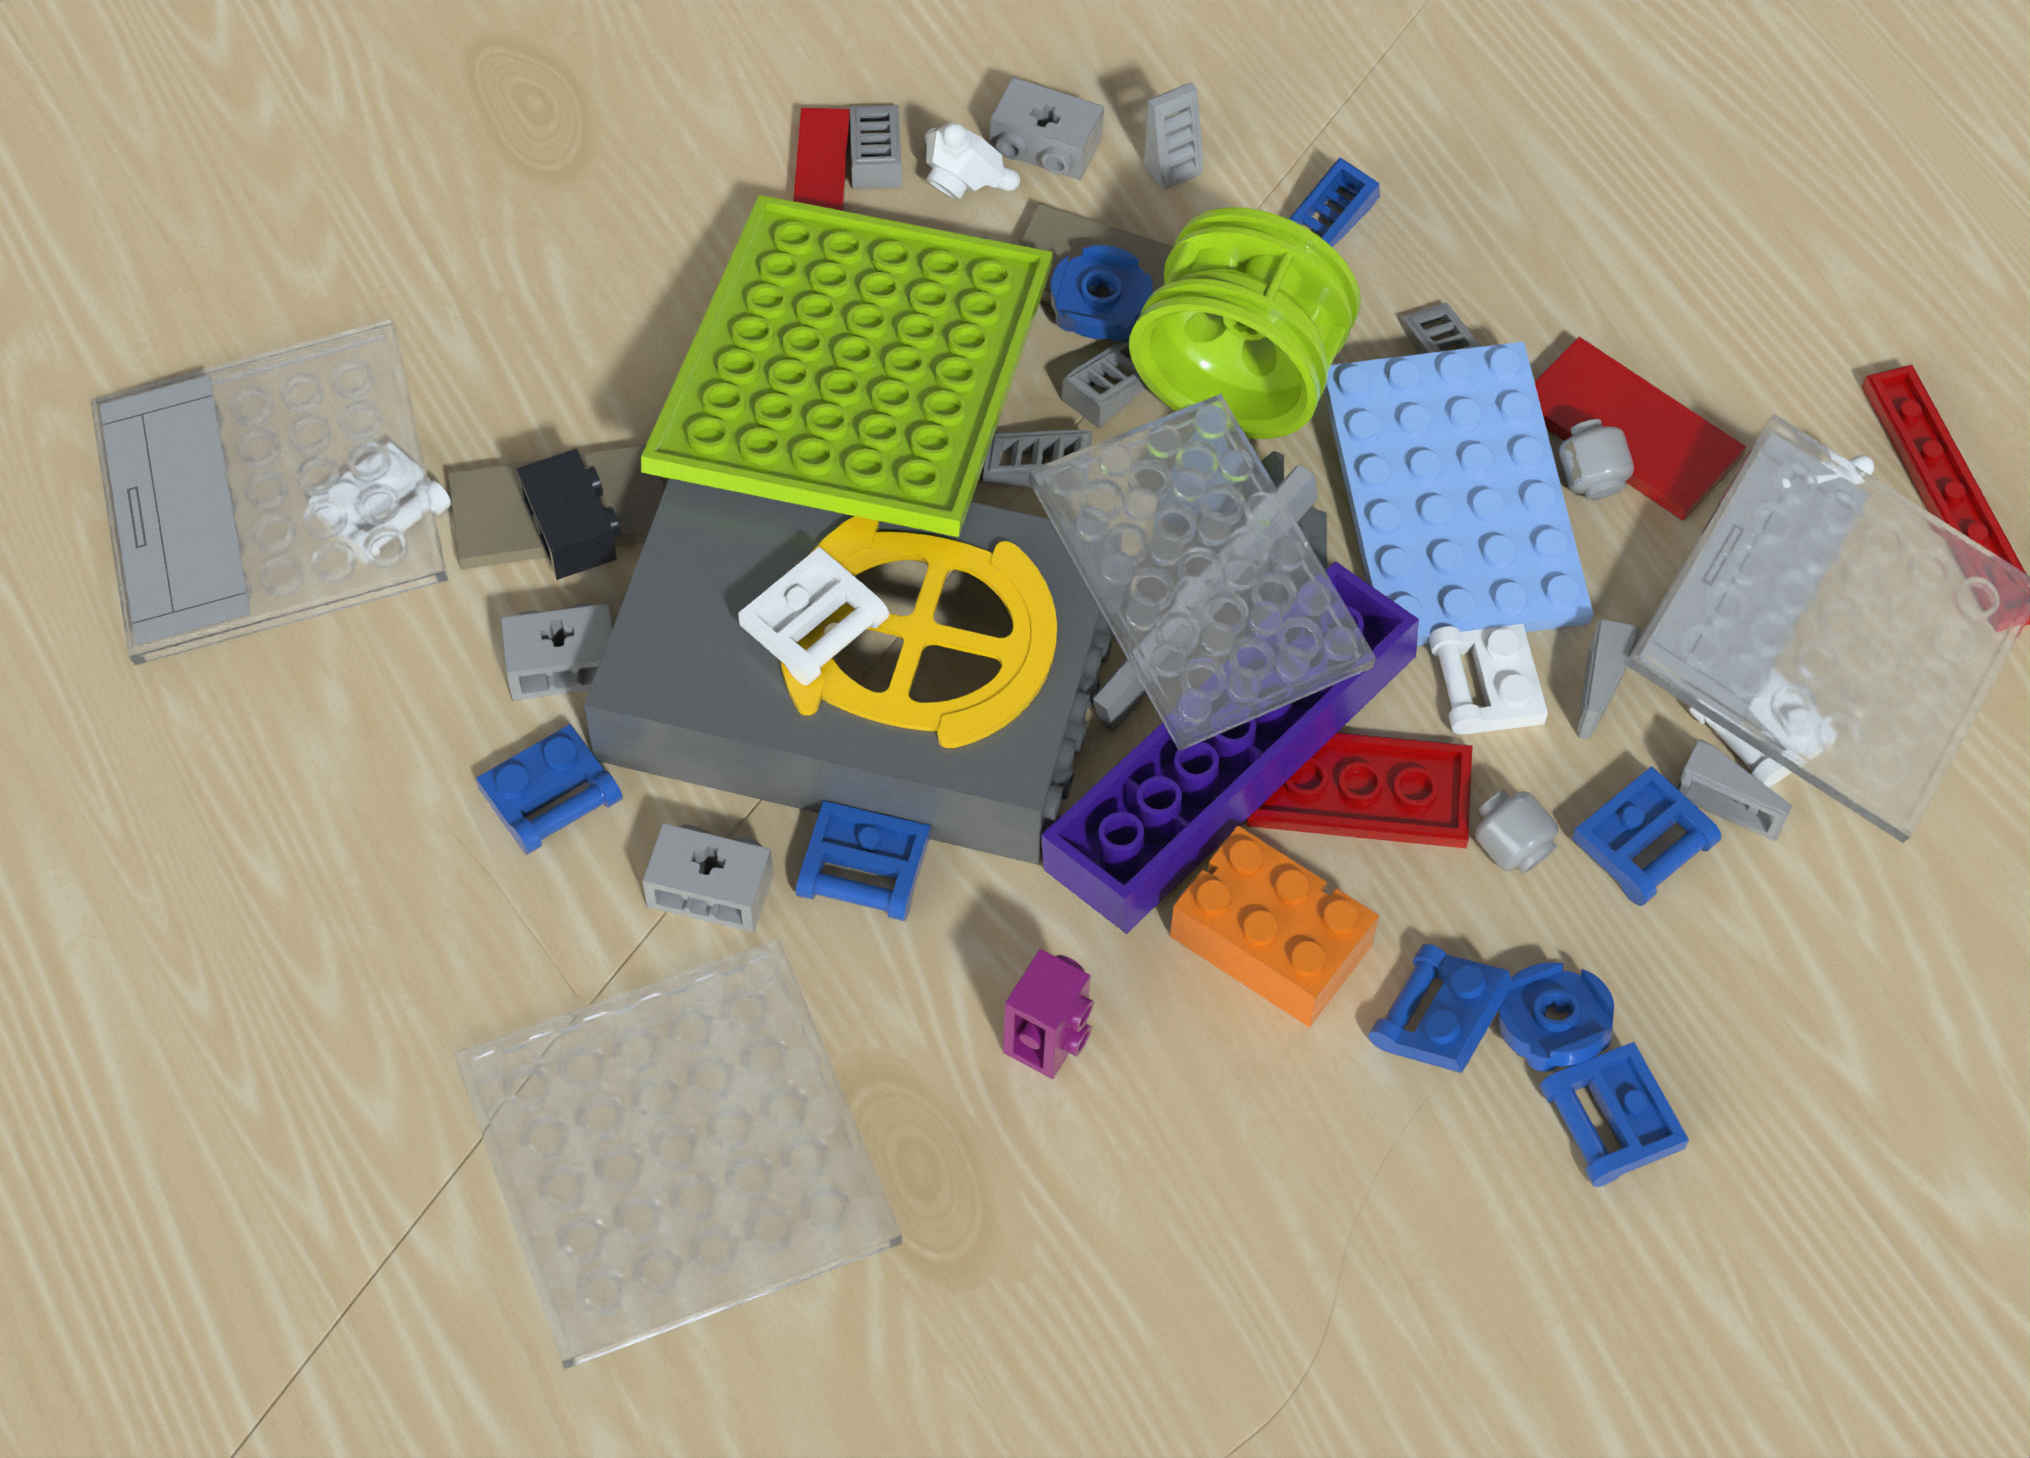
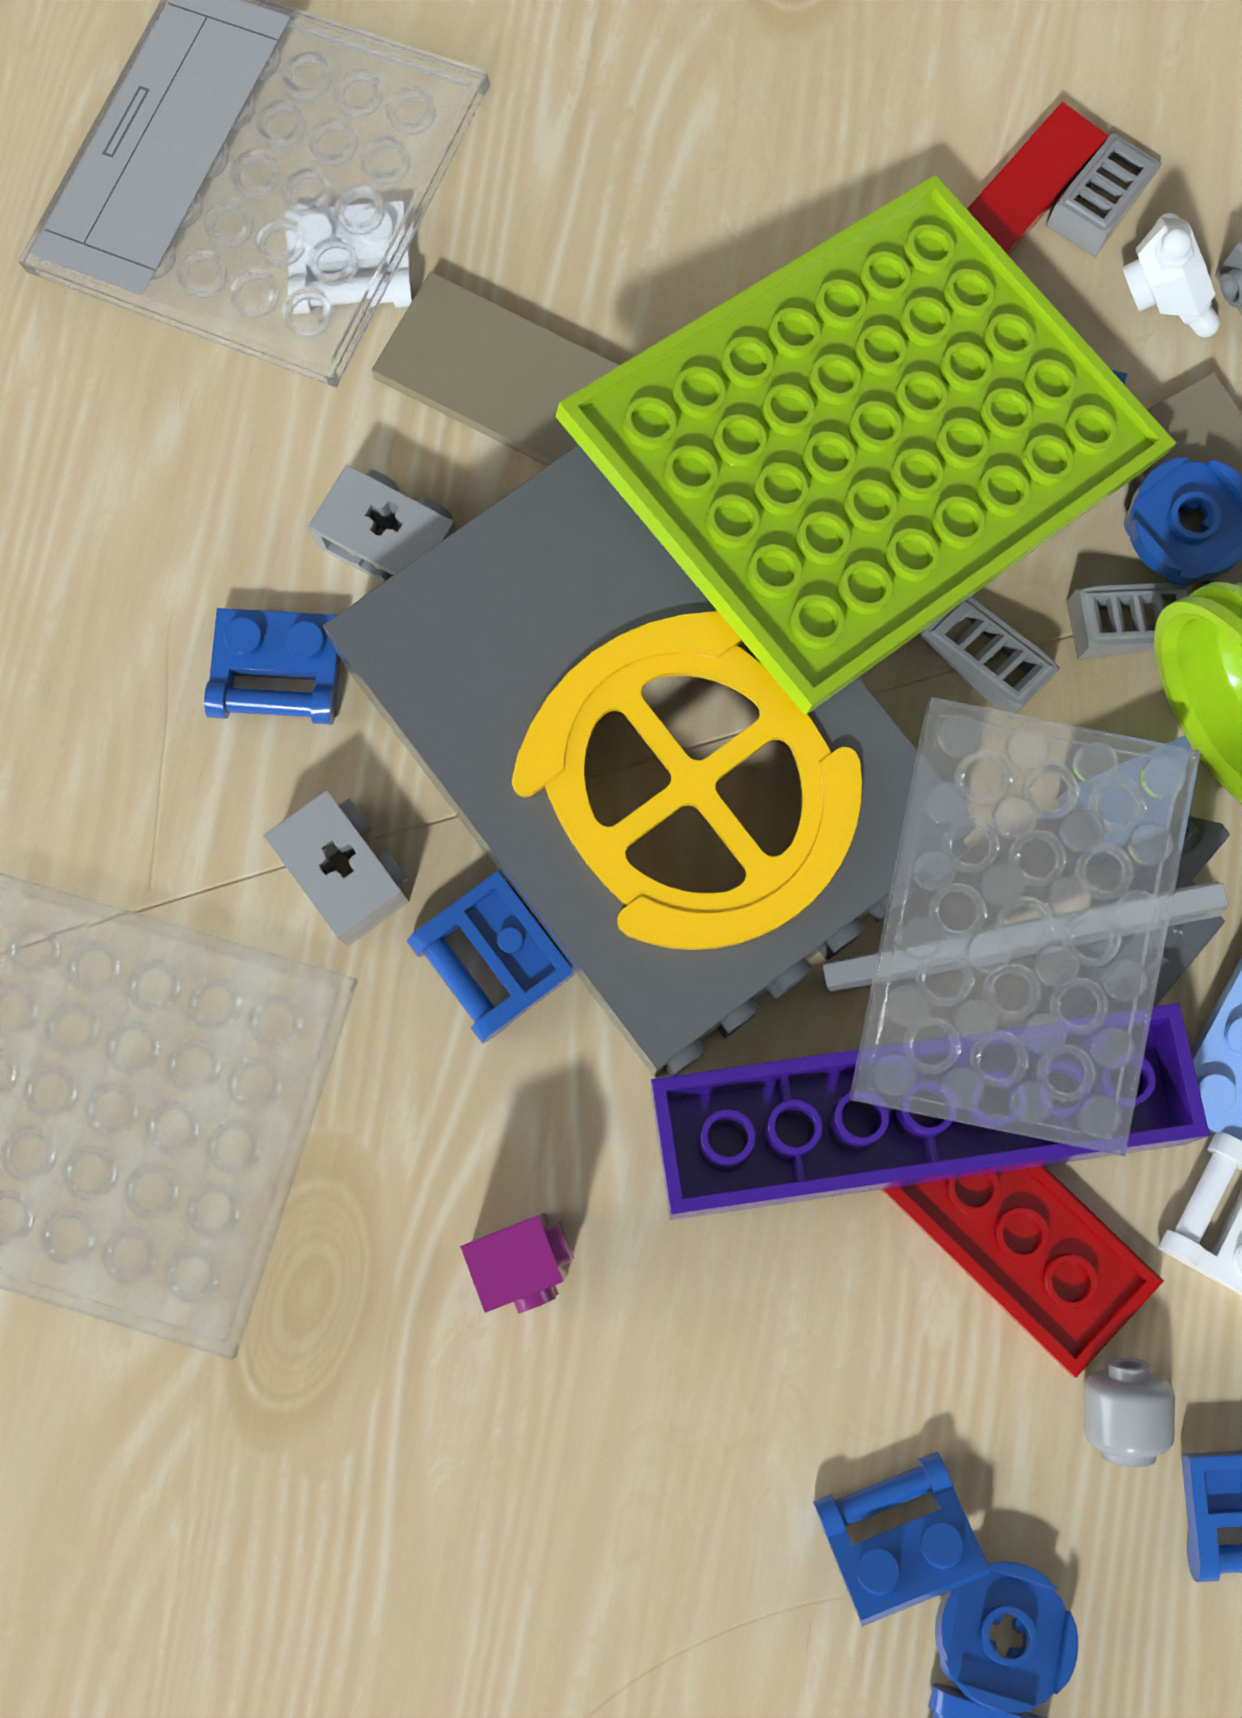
camera: 40 degrees right, 20 degrees up
(568, 513) = (492, 396): black brick -> none
(801, 603) = (589, 677): white plate -> none
(1273, 926) = (811, 1330): orange piece -> none

